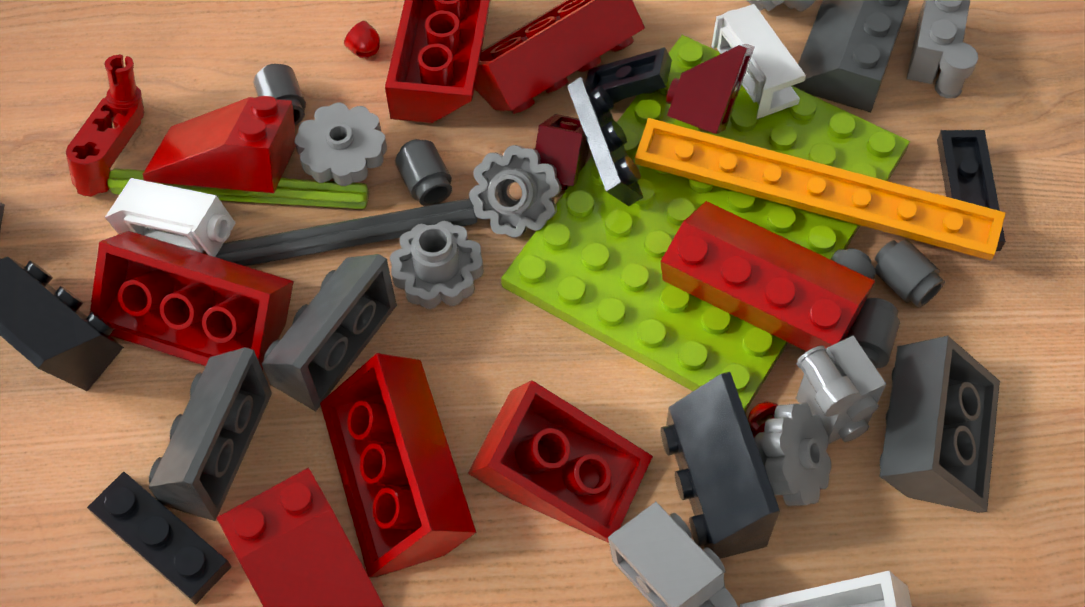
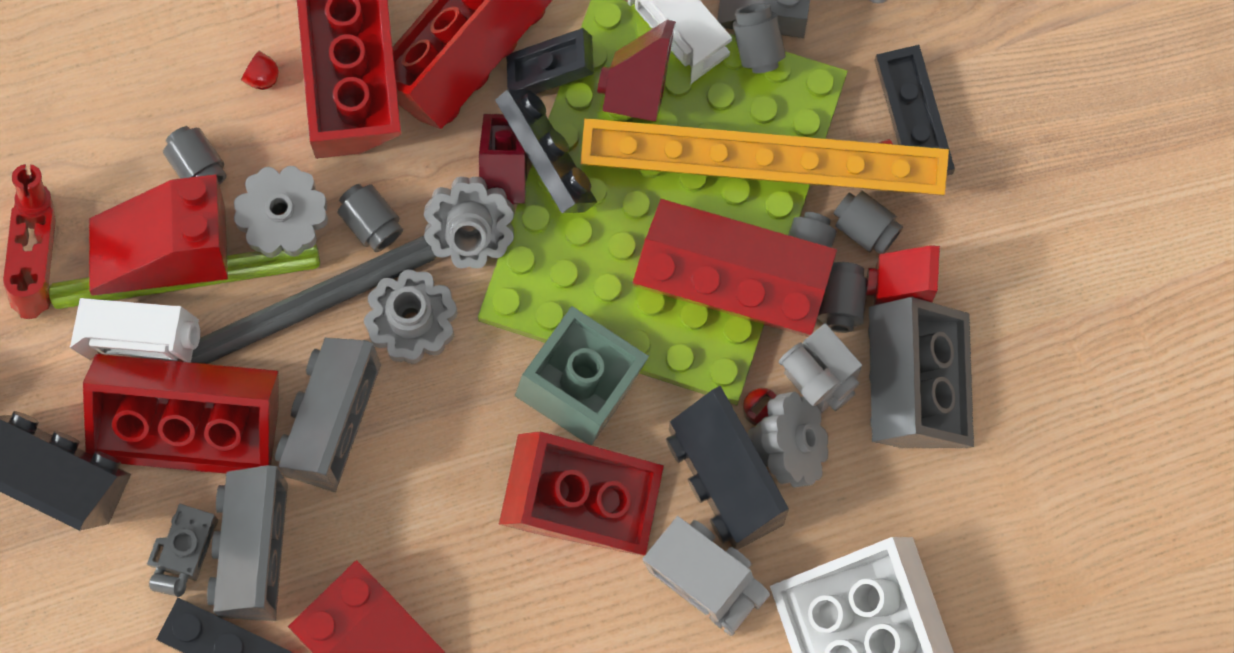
camera: 15 degrees left, 15 degrees up
(144, 429) = (182, 550): none -> dark grey piece
(396, 465) = (429, 531): red slope -> none
(587, 347) = (580, 375): none -> sand green slope
(831, 85) = (758, 37): none -> dark grey brick
(944, 314) = (905, 275): none -> red slope

